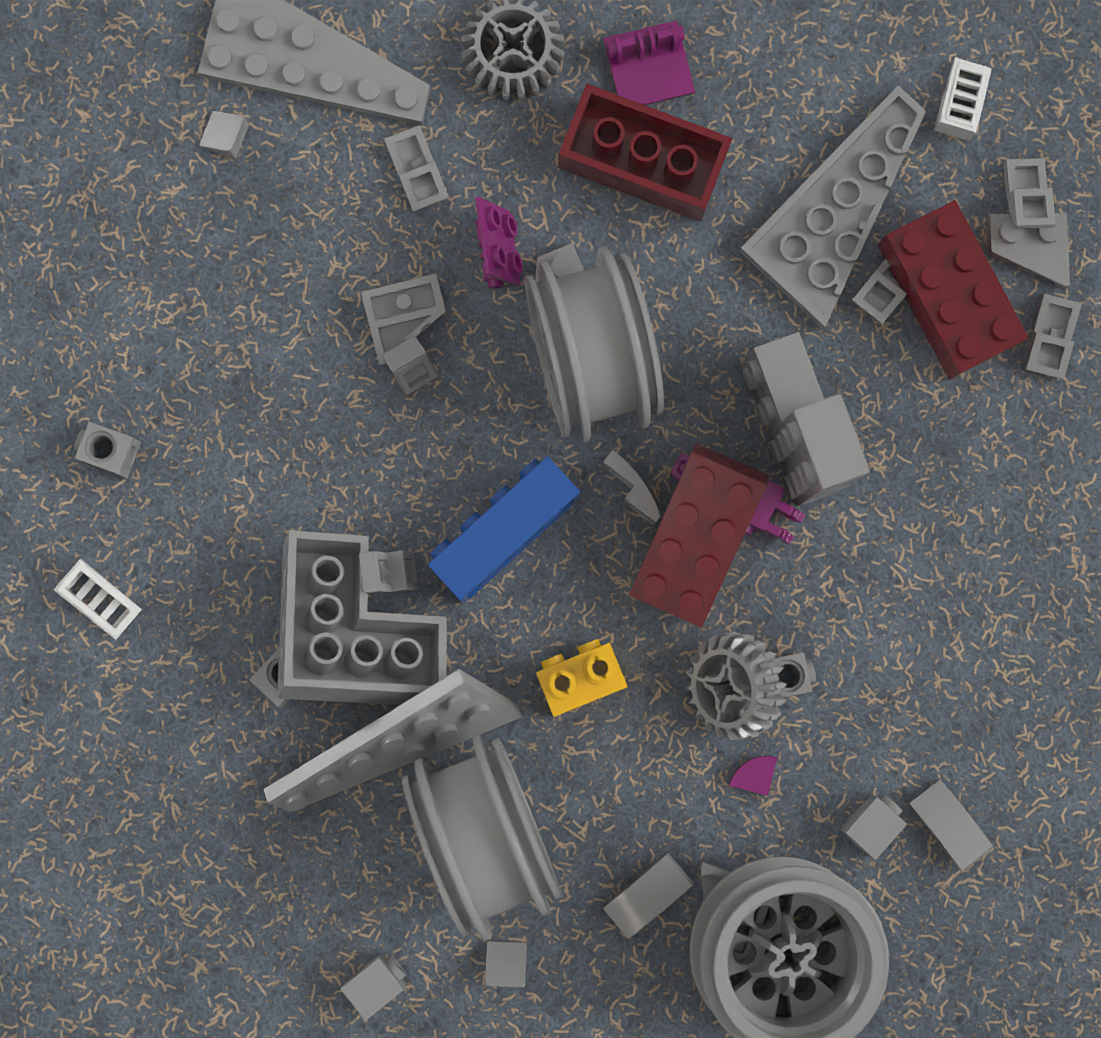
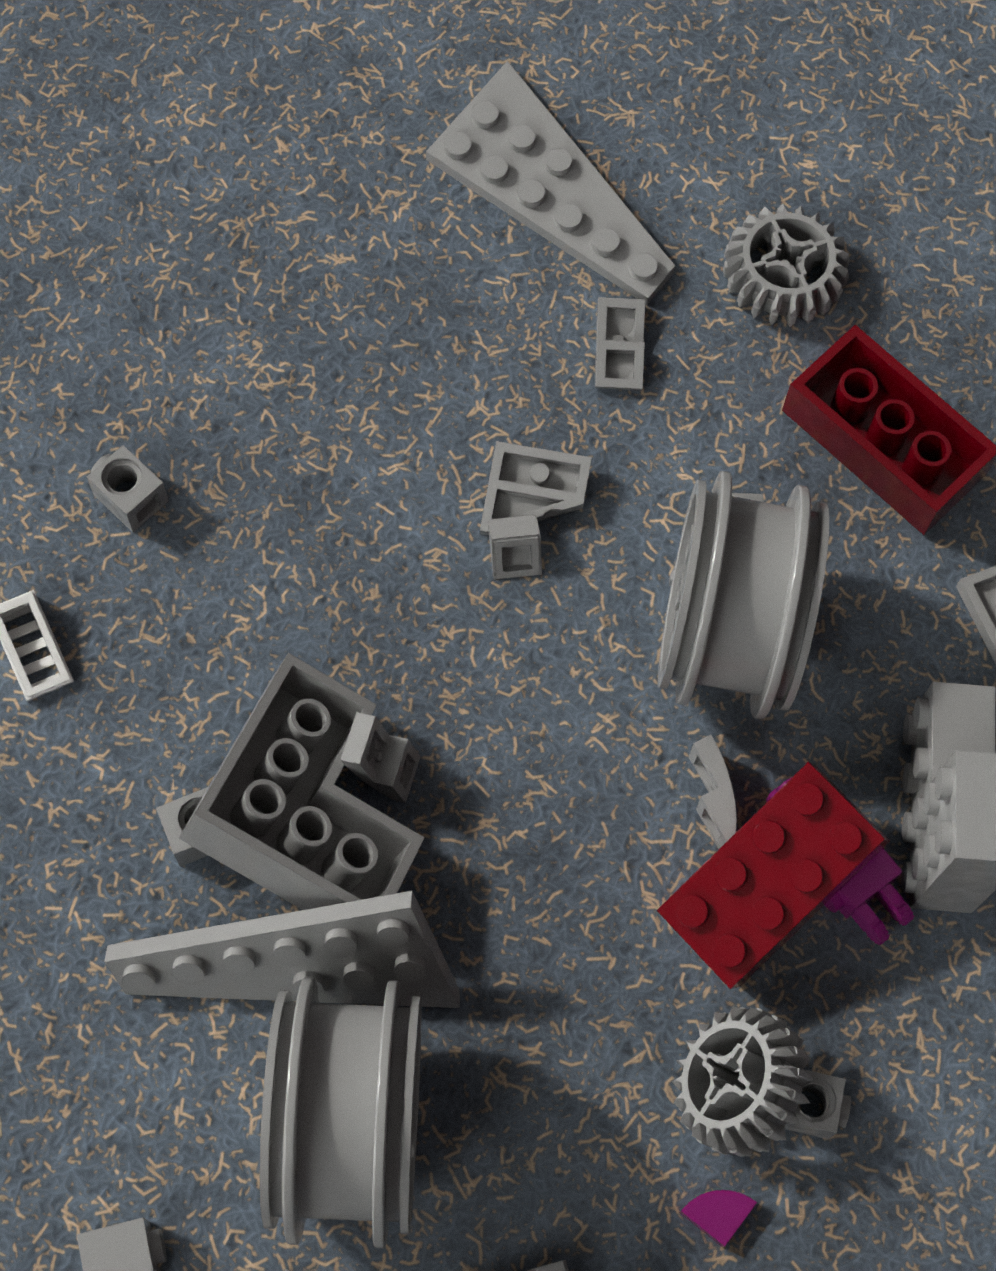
camera: 25 degrees right, 15 degrees down
(224, 134) = (425, 224): light grey slope -> none
(496, 232) = (675, 456): magenta hinge -> none
(505, 529) = (540, 768): blue brick -> none
(580, 678) = (553, 989): yellow brick -> none
(650, 63) = (937, 343): magenta hinge -> none

